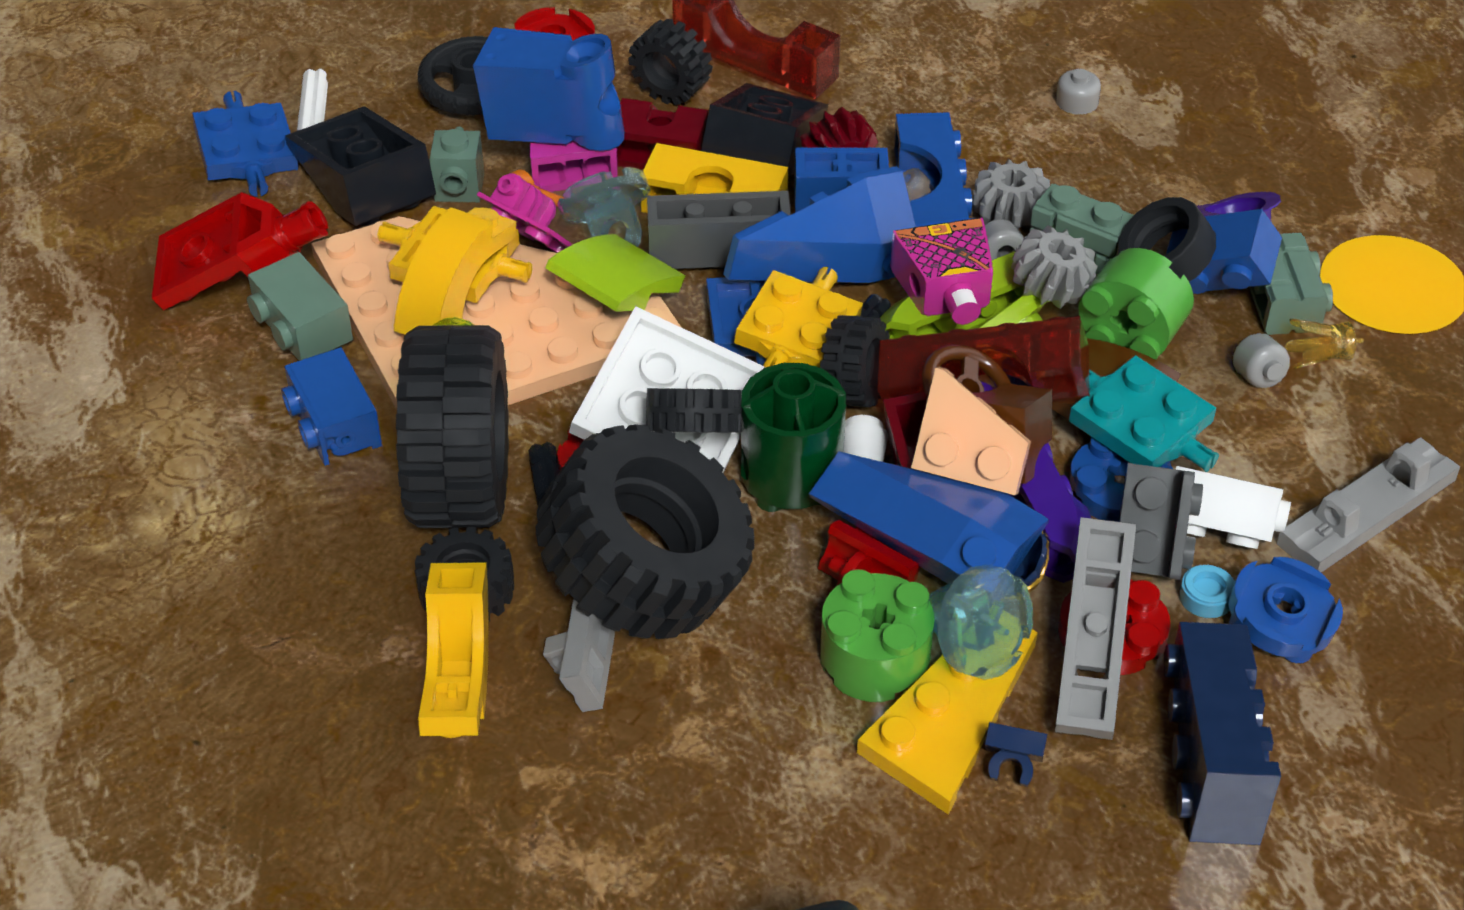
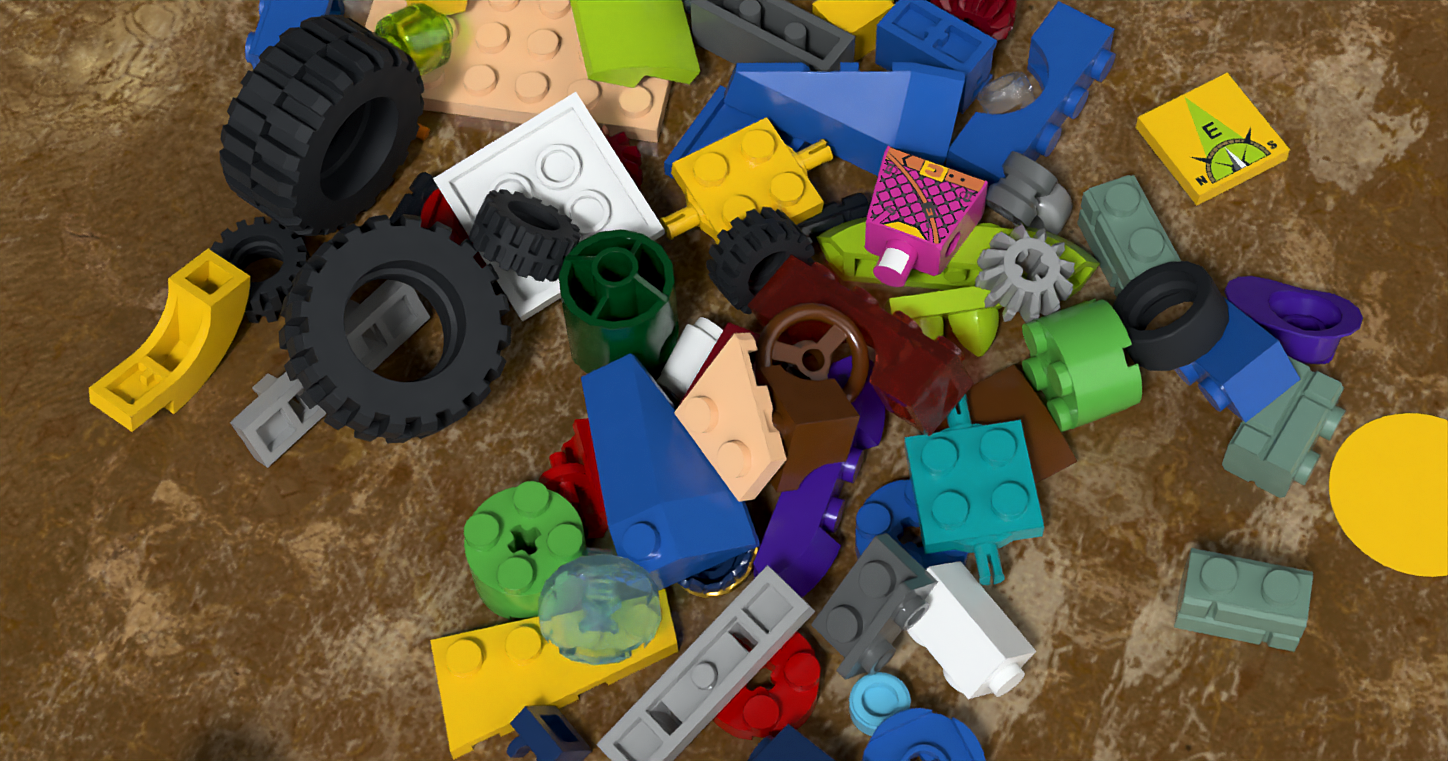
camera: 40 degrees right, 15 degrees up
(997, 213) = (1016, 194): none -> dark grey wheel
(1009, 192) = (1099, 154): light grey gear -> none
(1067, 151) = (1212, 138): none -> yellow tile
(1078, 91) = (1301, 71): light grey piece -> none
(1261, 360) = (1174, 497): light grey piece -> none
(1336, 343) = (1271, 517): clear yellow piece -> none
(1368, 505) = (1127, 720): light grey hinge -> none
(1369, 388) = (1243, 599): none -> sand green brick

